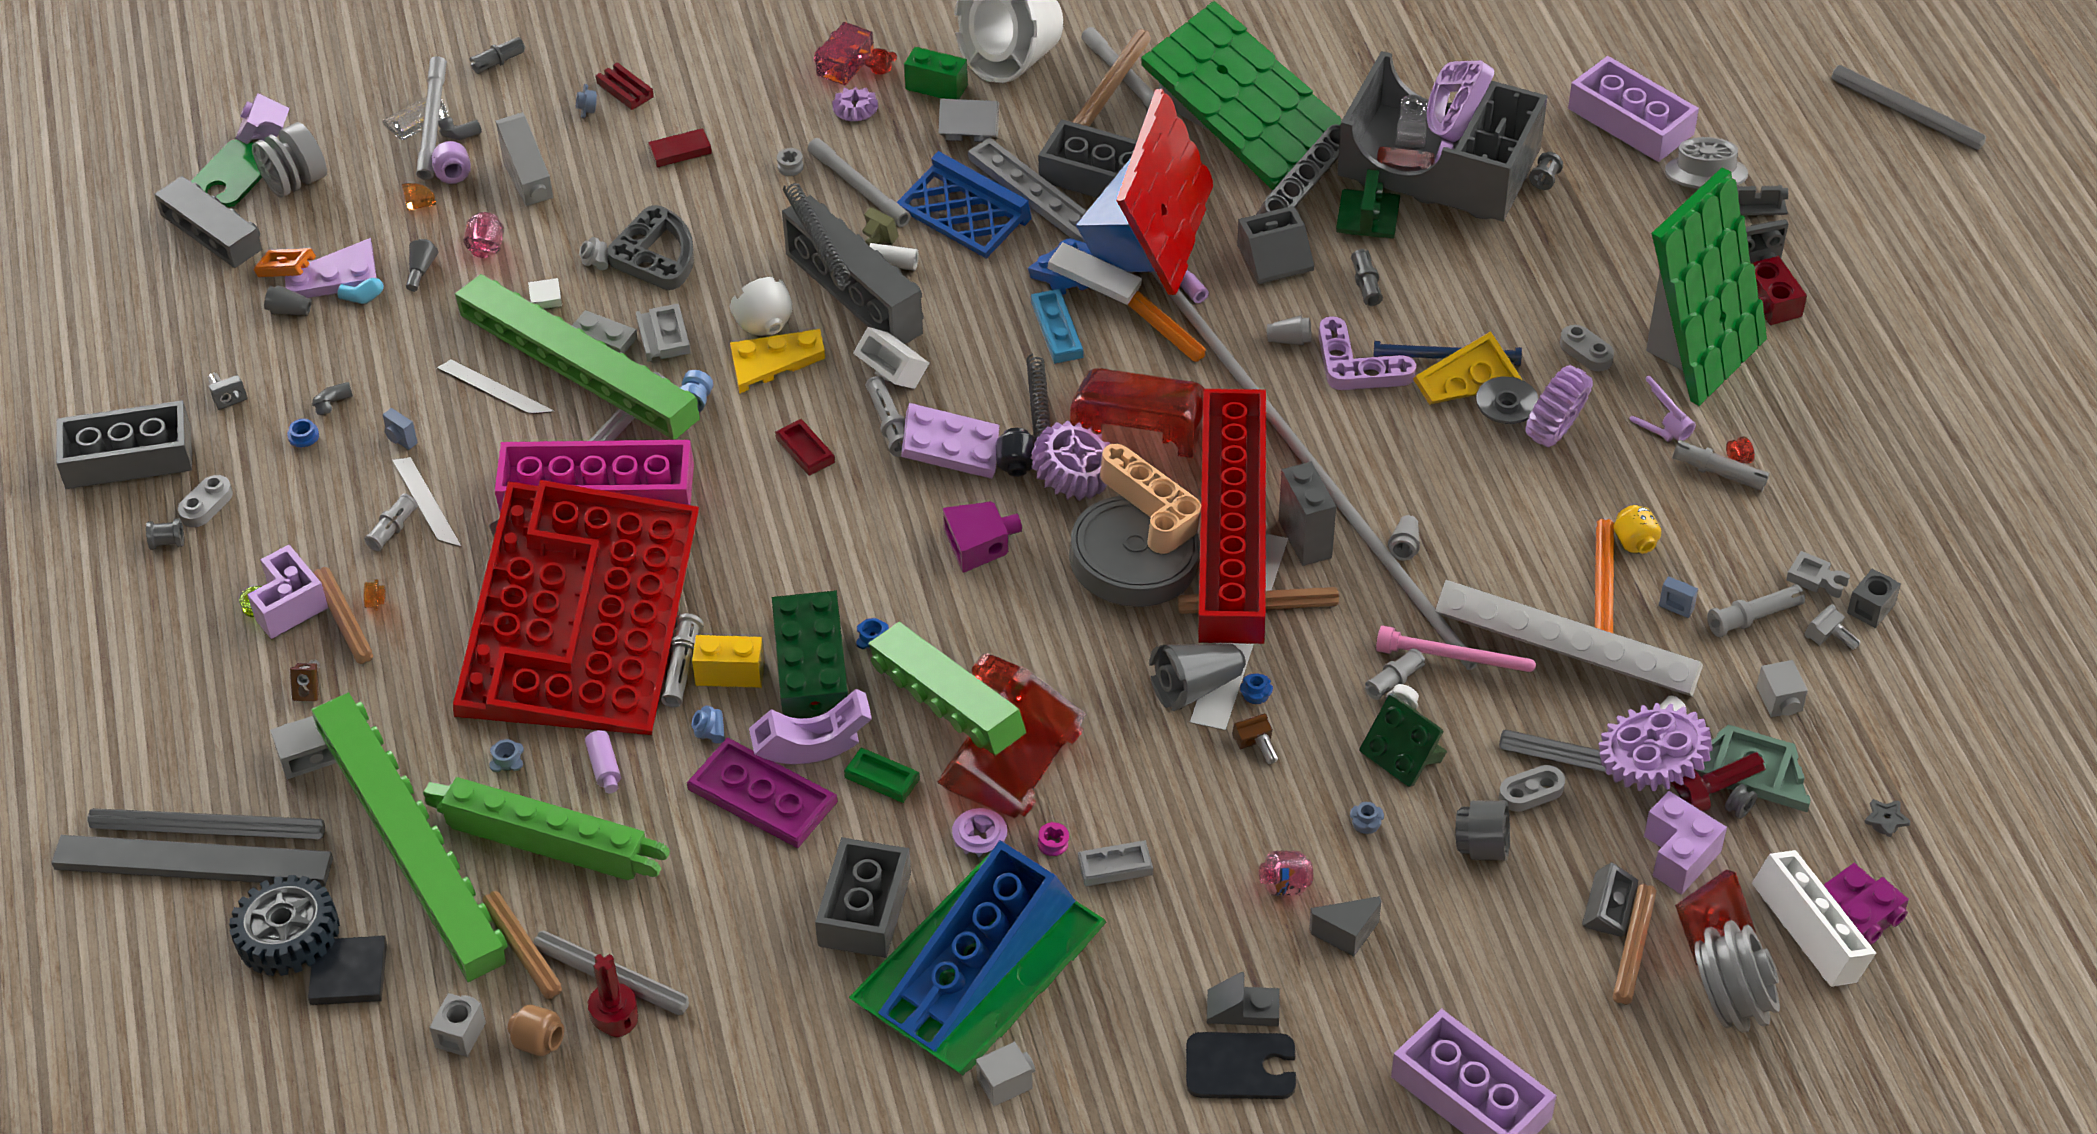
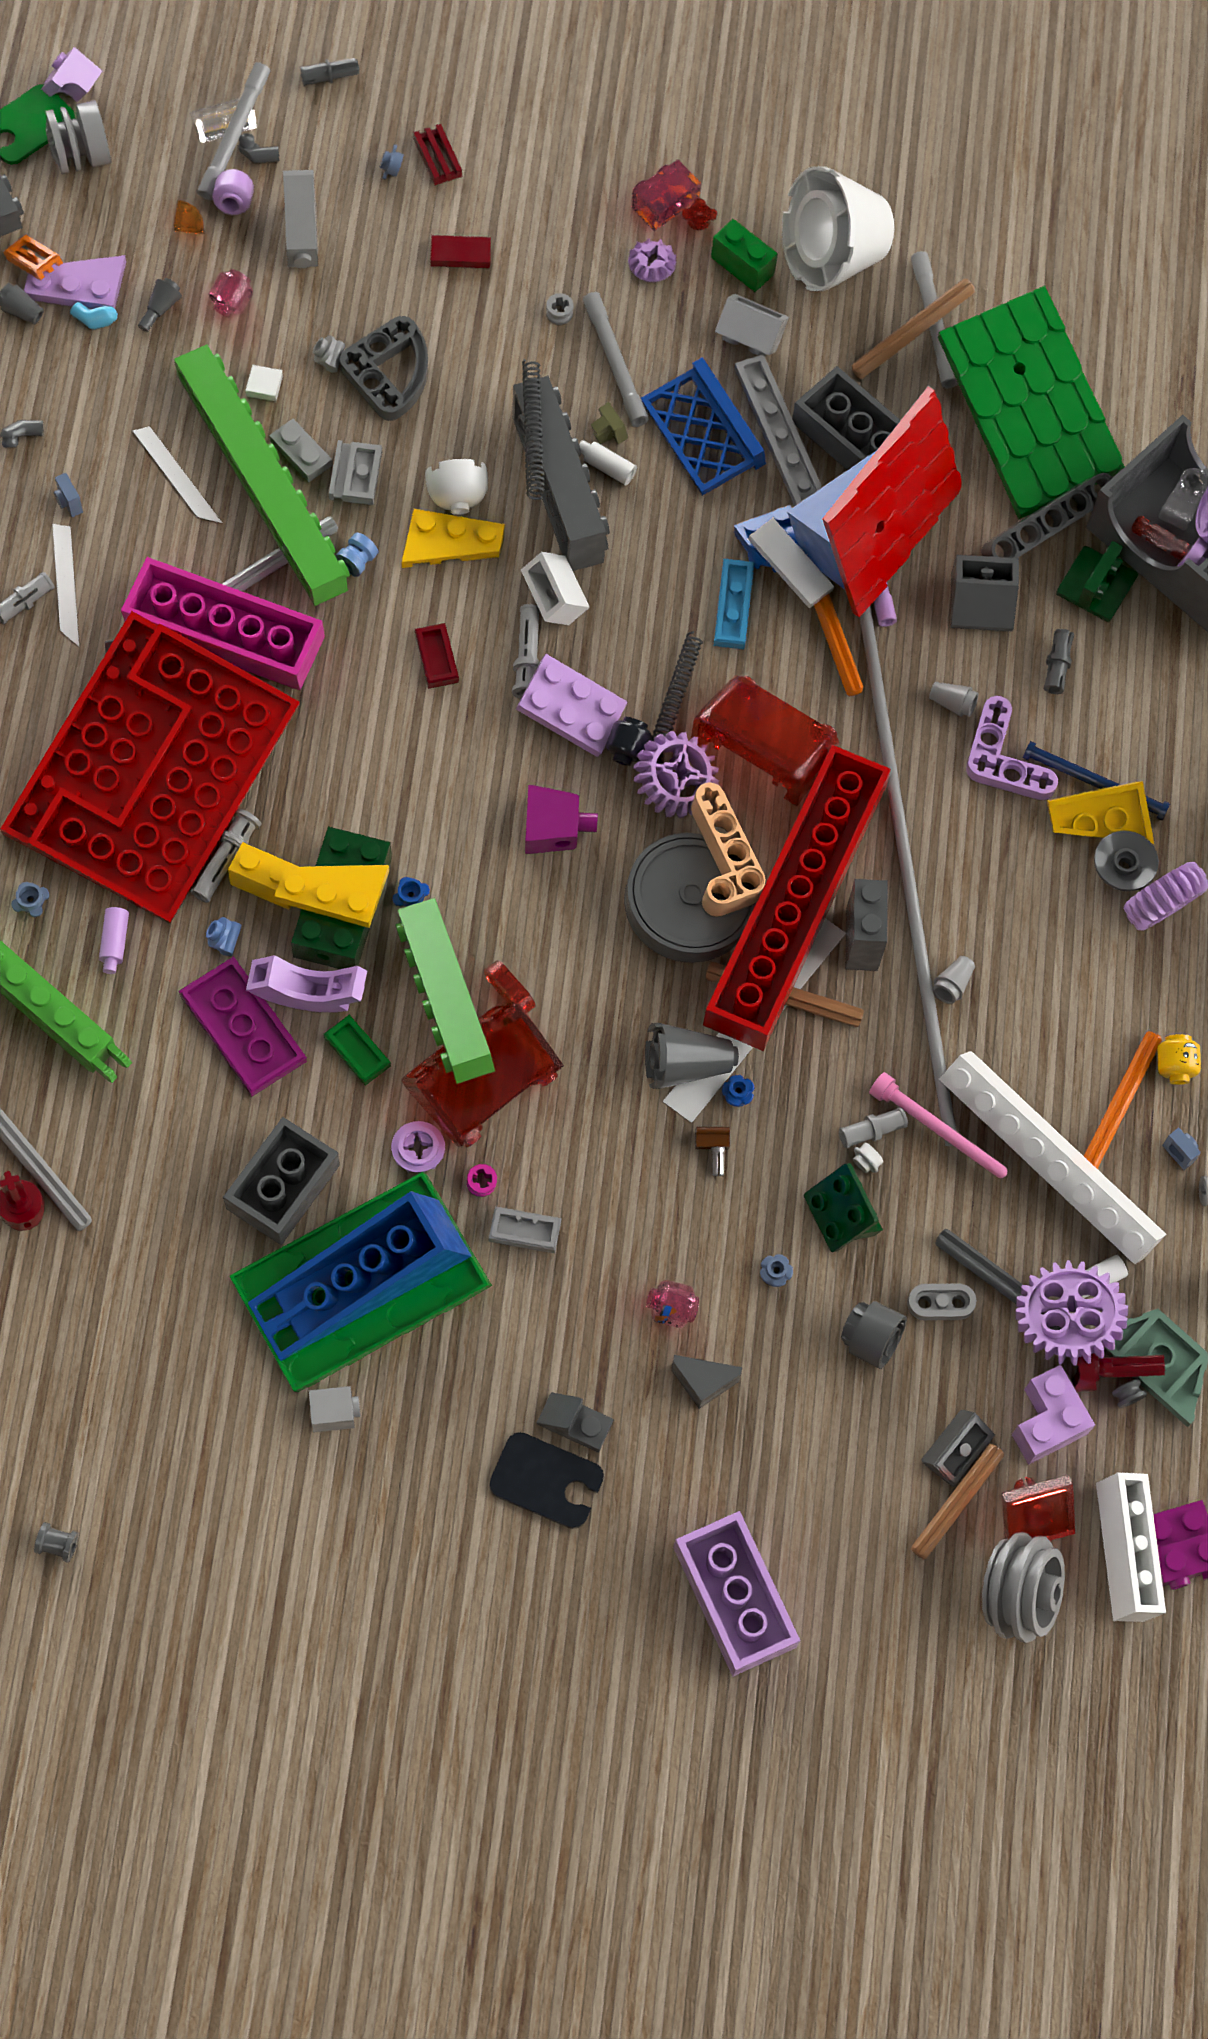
camera: 15 degrees right, 20 degrees up
(804, 640) = (334, 891): none -> yellow wing

